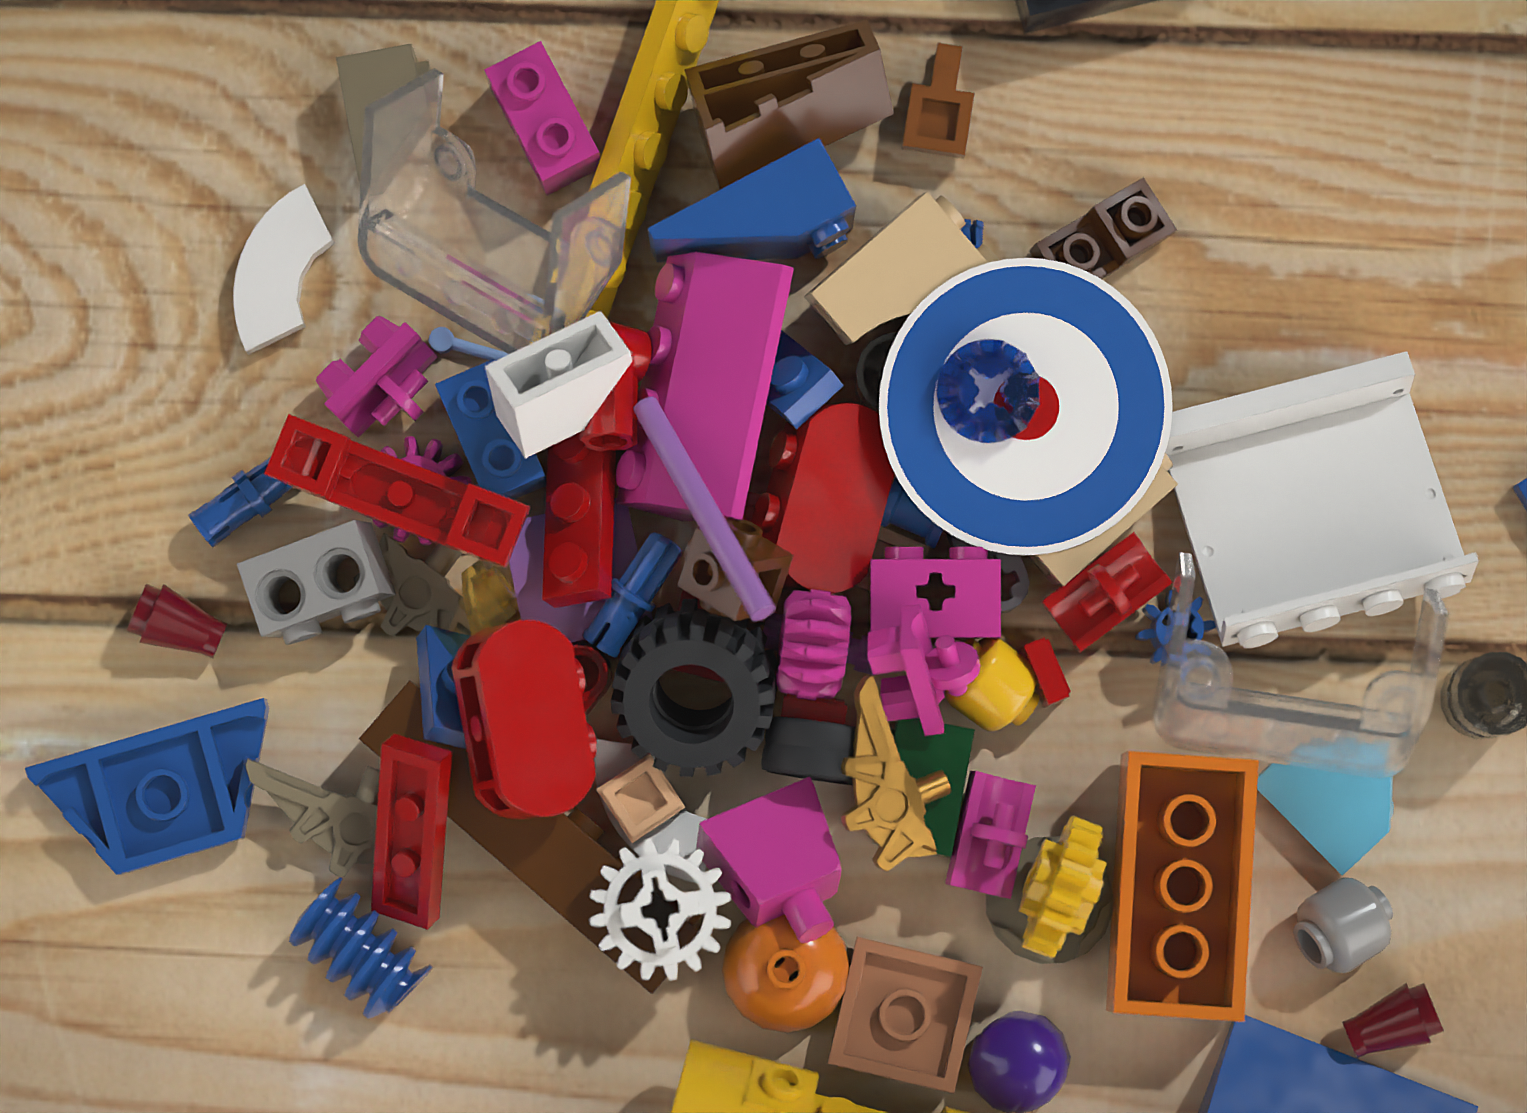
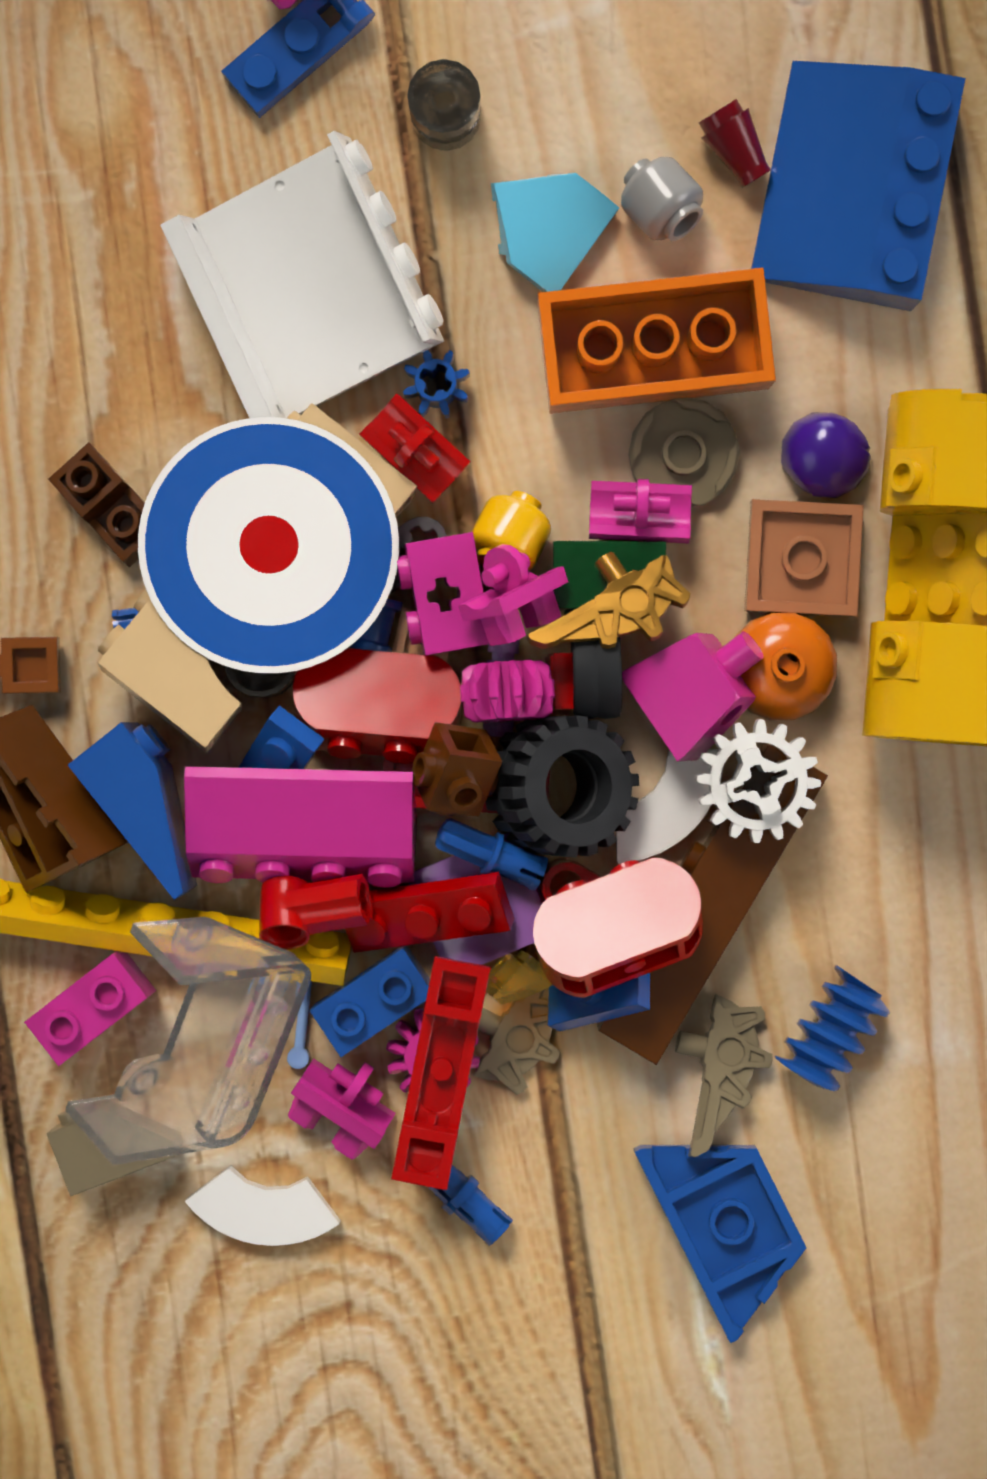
camera: 100 degrees left, 5 degrees up
(175, 623) = (583, 1239): dark red cone -> none
(314, 568) = (518, 1129): light grey brick -> none
(410, 831) = (726, 1005): red plate -> none
(557, 382) = (323, 952): white slope -> none
(641, 798) = (663, 814): light nougat tile -> none
(704, 509) = (411, 806): medium lavender bar -> none
(958, 391) = (267, 605): clear blue gear -> none
(1050, 679) = (498, 483): red tile -> none
(1062, 887) = (677, 441): yellow gear -> none
(1205, 714) = (504, 345): clear windscreen -> none

